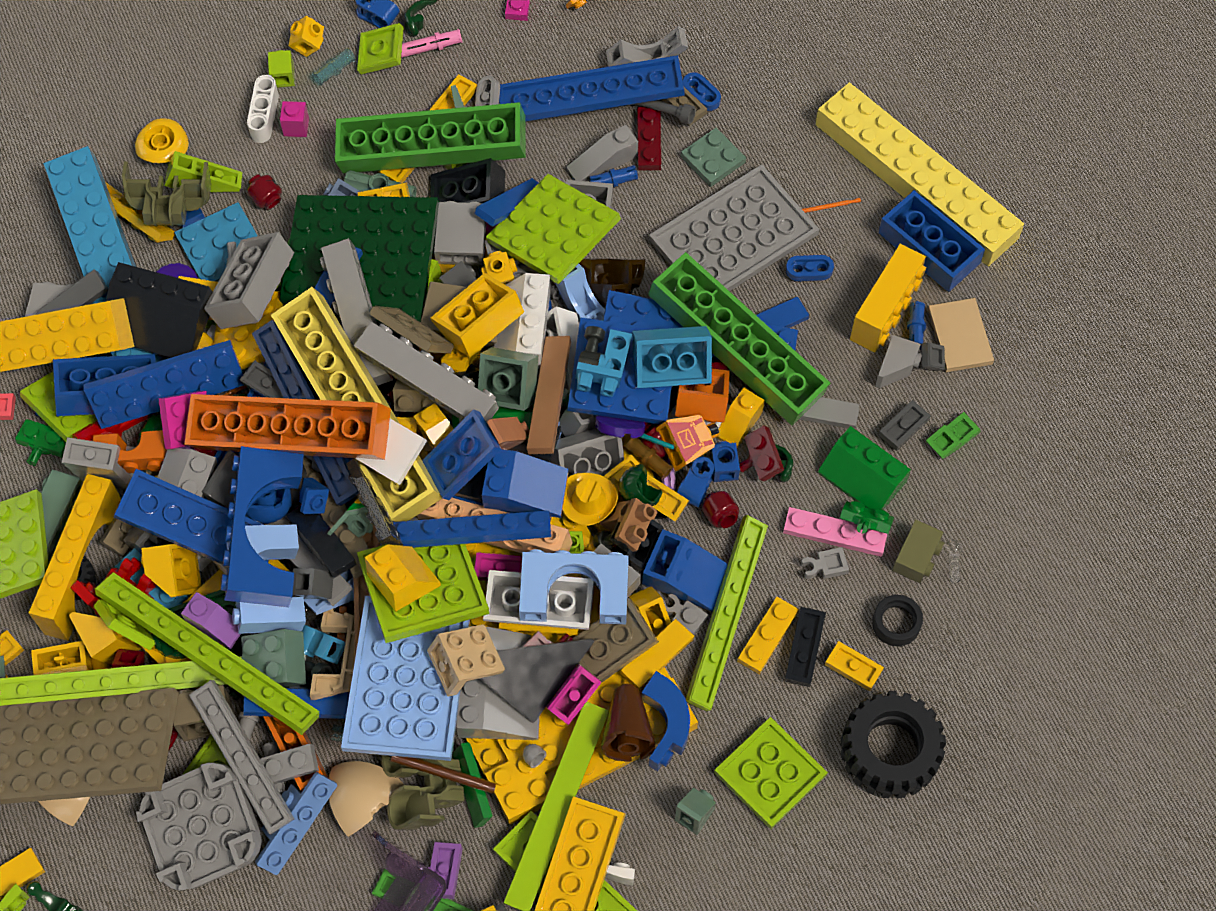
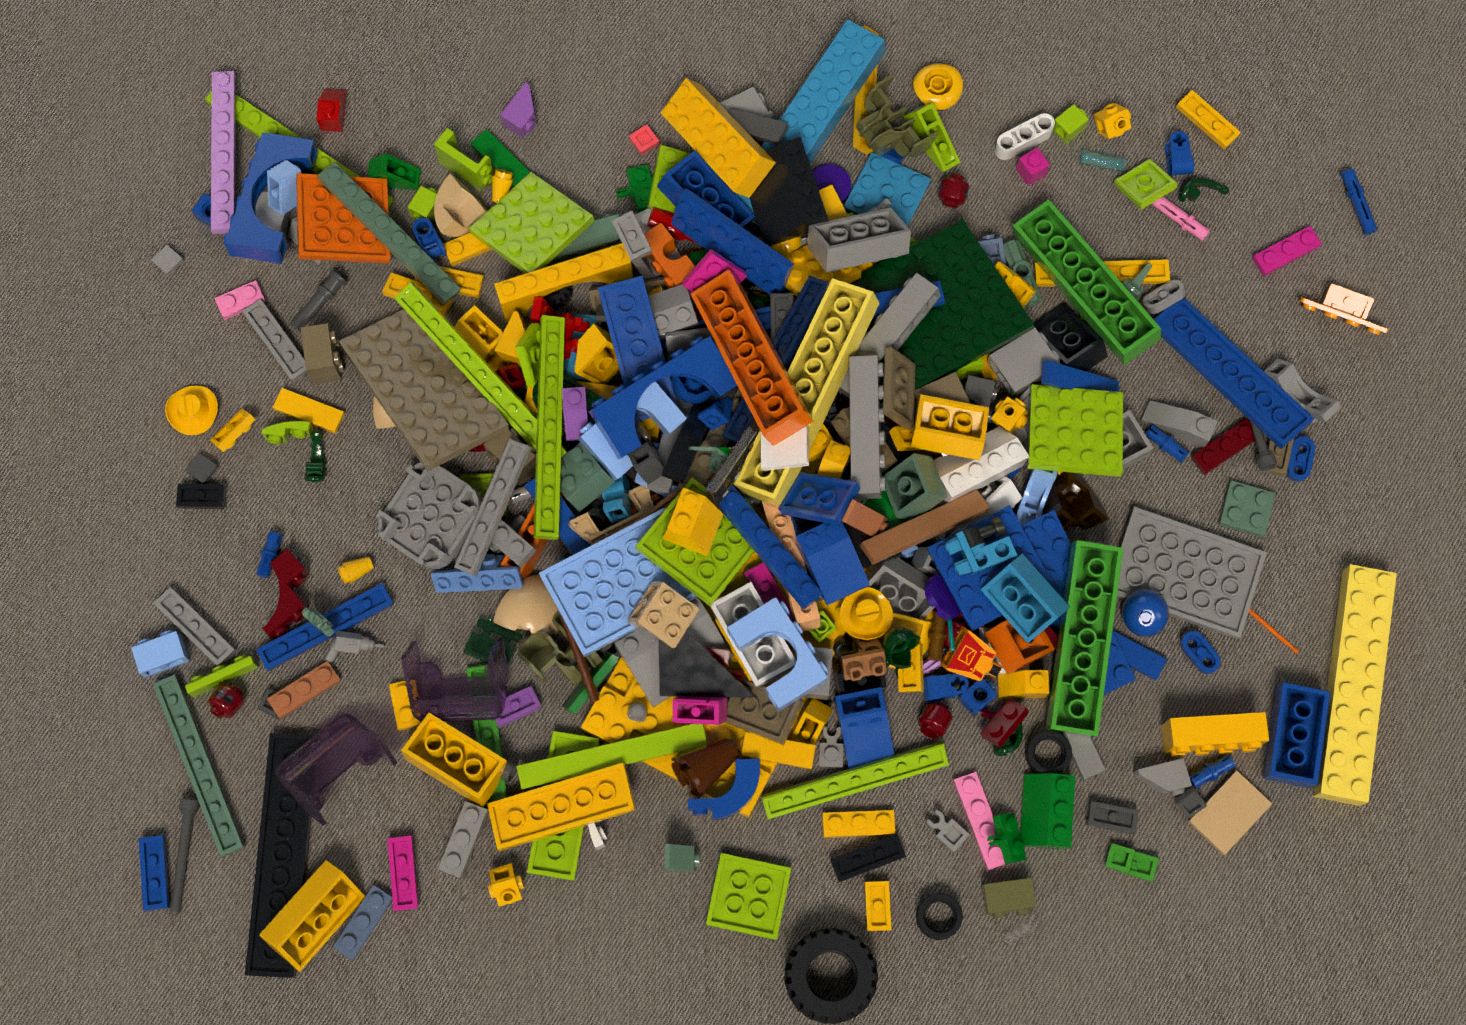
camera: 55 degrees right, 10 degrees up
(368, 861) = (480, 644): none -> clear green plate
(748, 283) = (1145, 612): none -> blue cylinder
(813, 421) = (1060, 740): none -> black tyre

